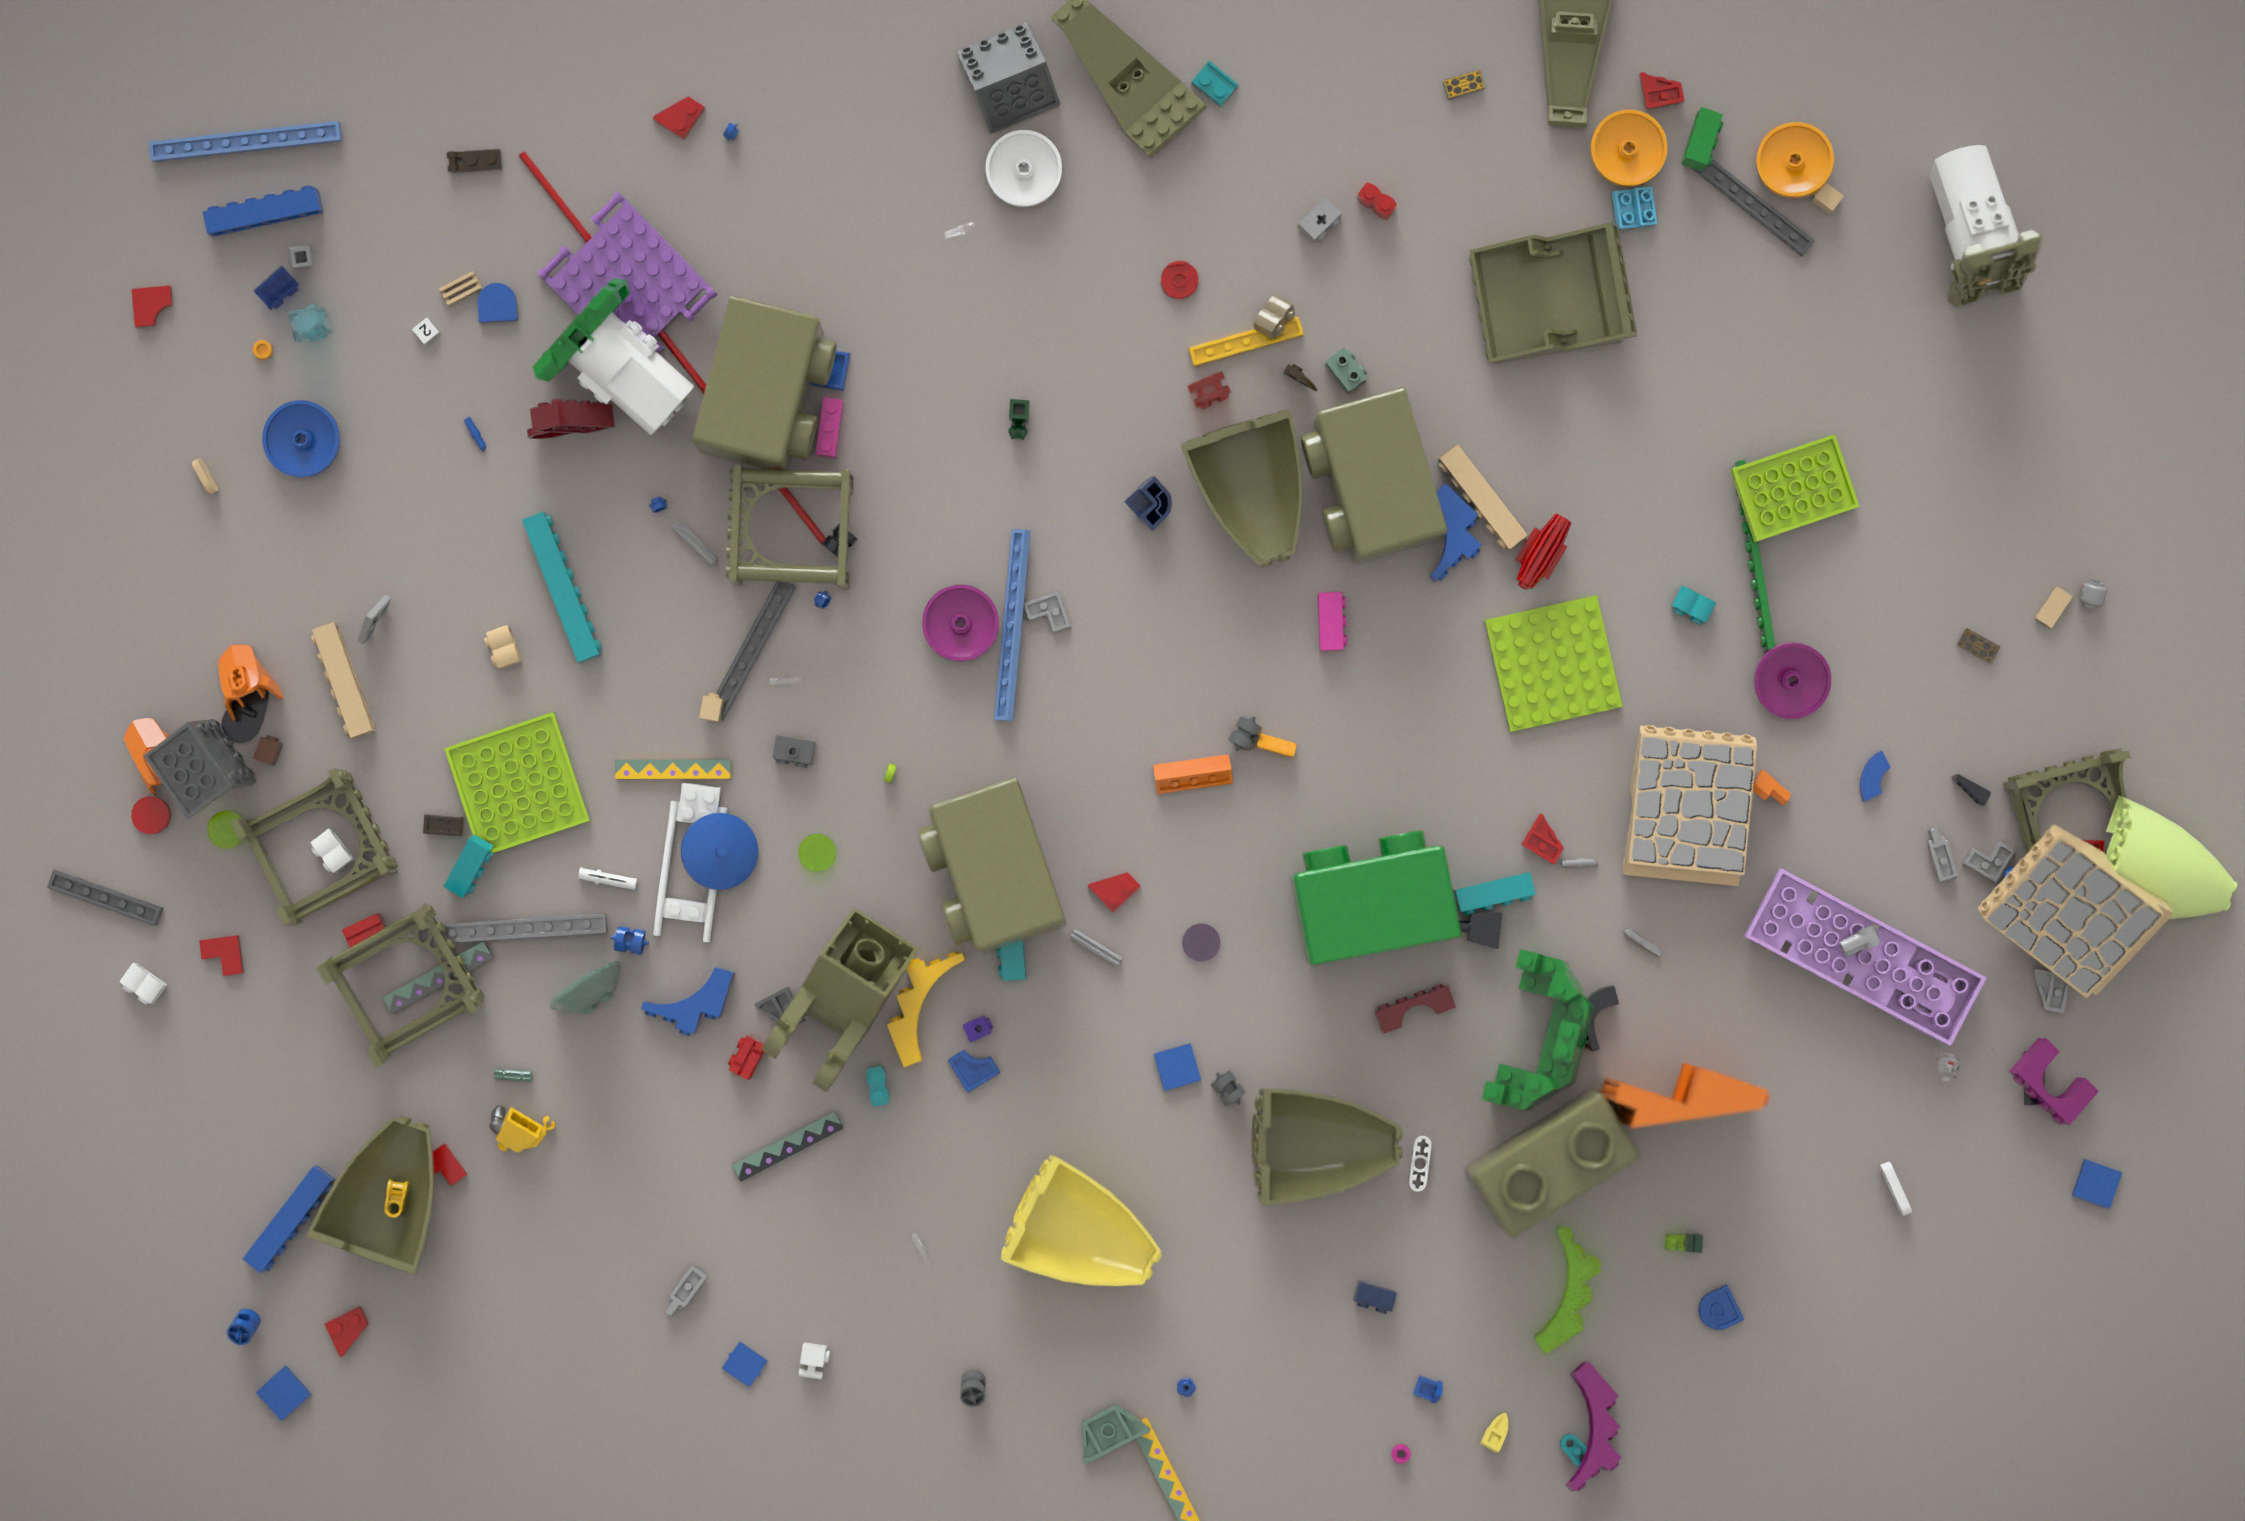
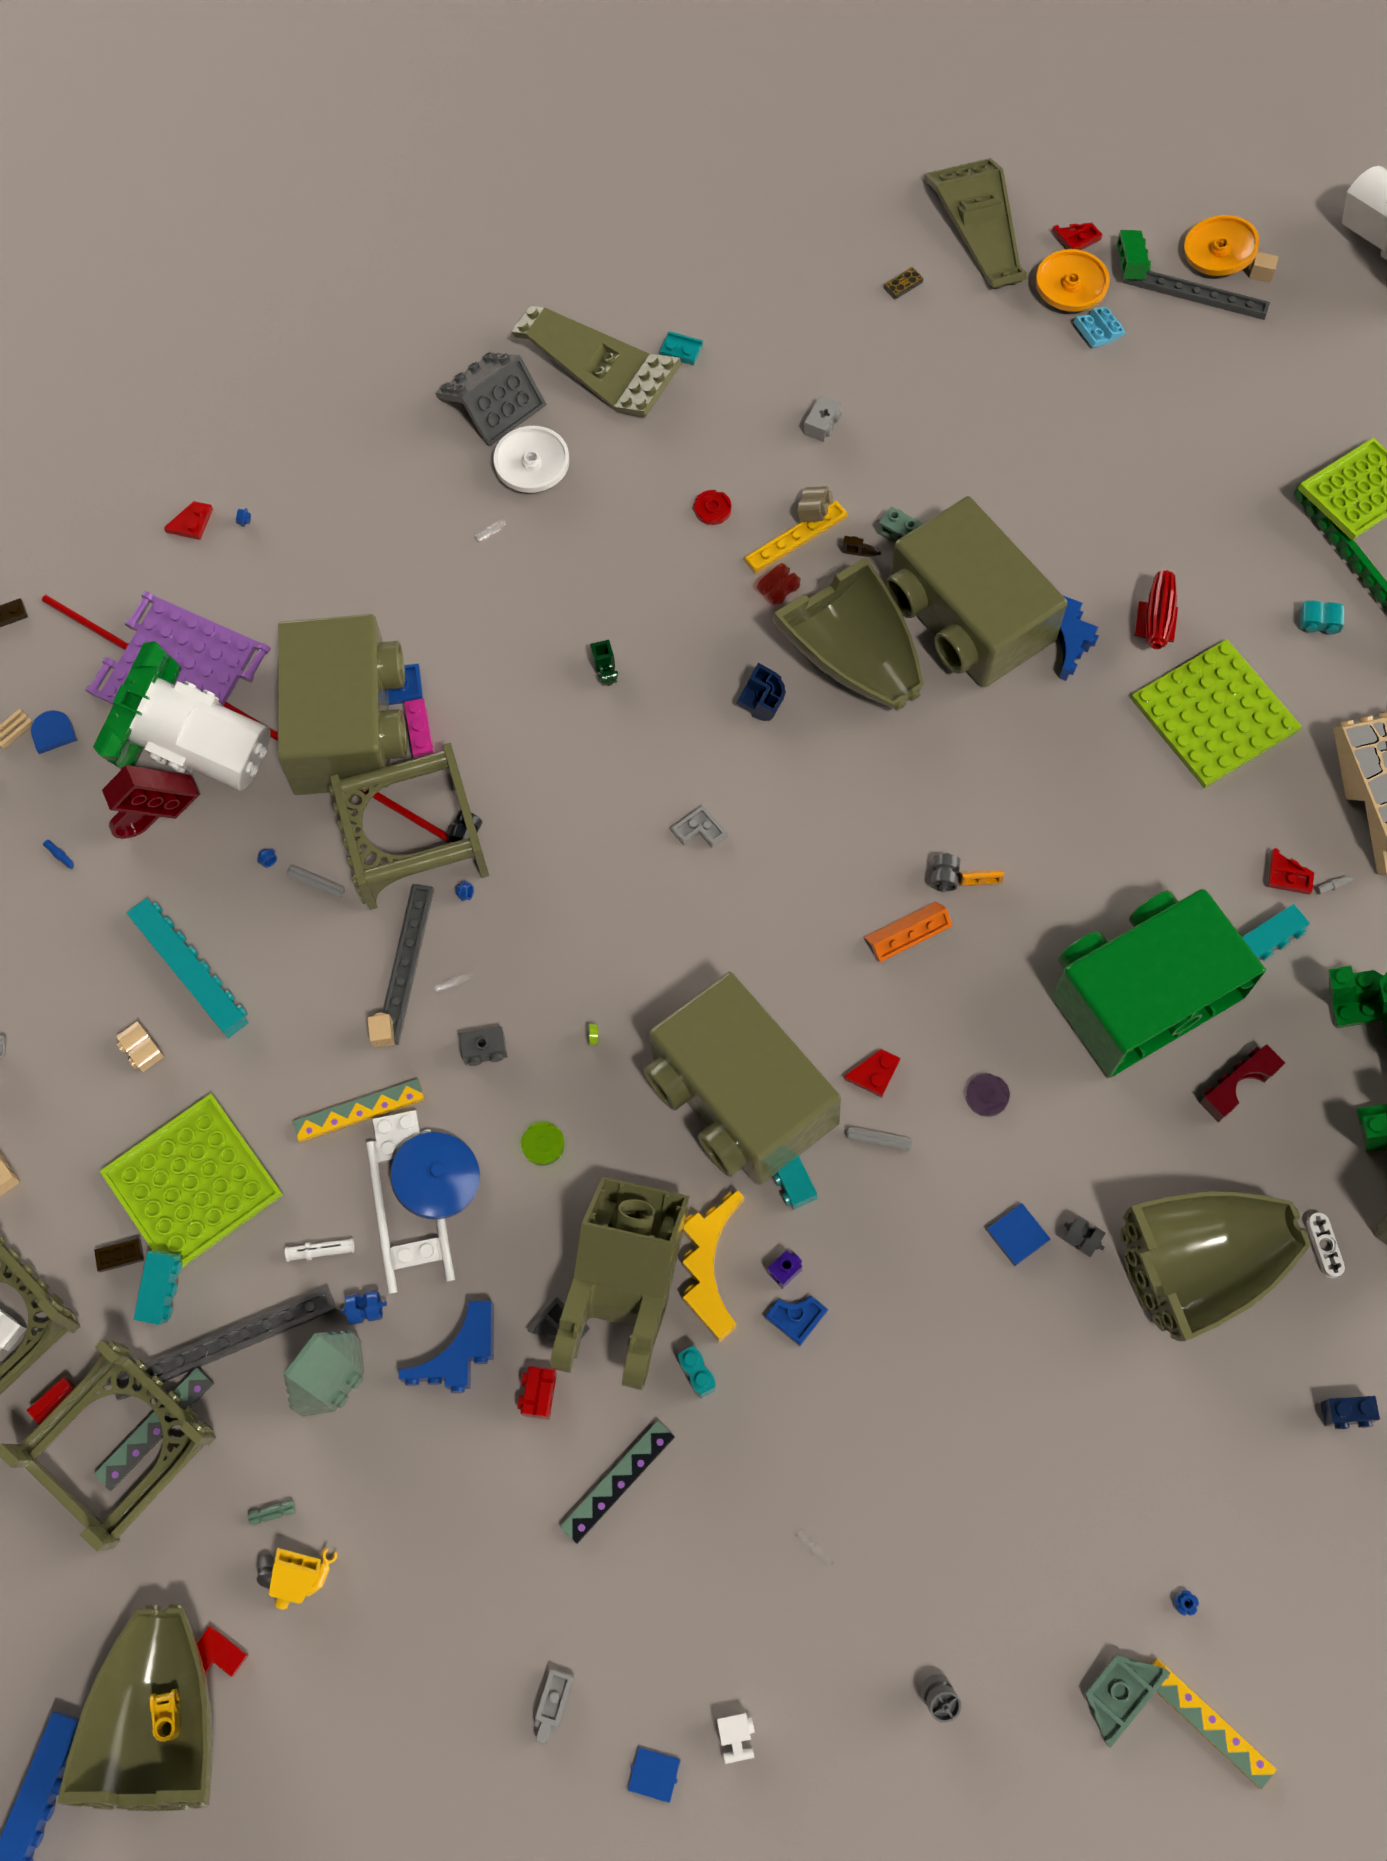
camera: 15 degrees left, 20 degrees down
(960, 623) = (614, 863): magenta dish -> none
(1012, 625) = (668, 852): medium blue plate -> none
(1078, 1231) = (989, 1450): light yellow panel -> none
(1331, 621) = (984, 743): dark pink brick -> none
(1372, 198) = (867, 387): red brick -> none
(1482, 497) = (1096, 599): tan brick -> none
(1483, 928) = (1278, 979): black torso -> none
(1553, 293) = (1064, 406): olive panel -> none

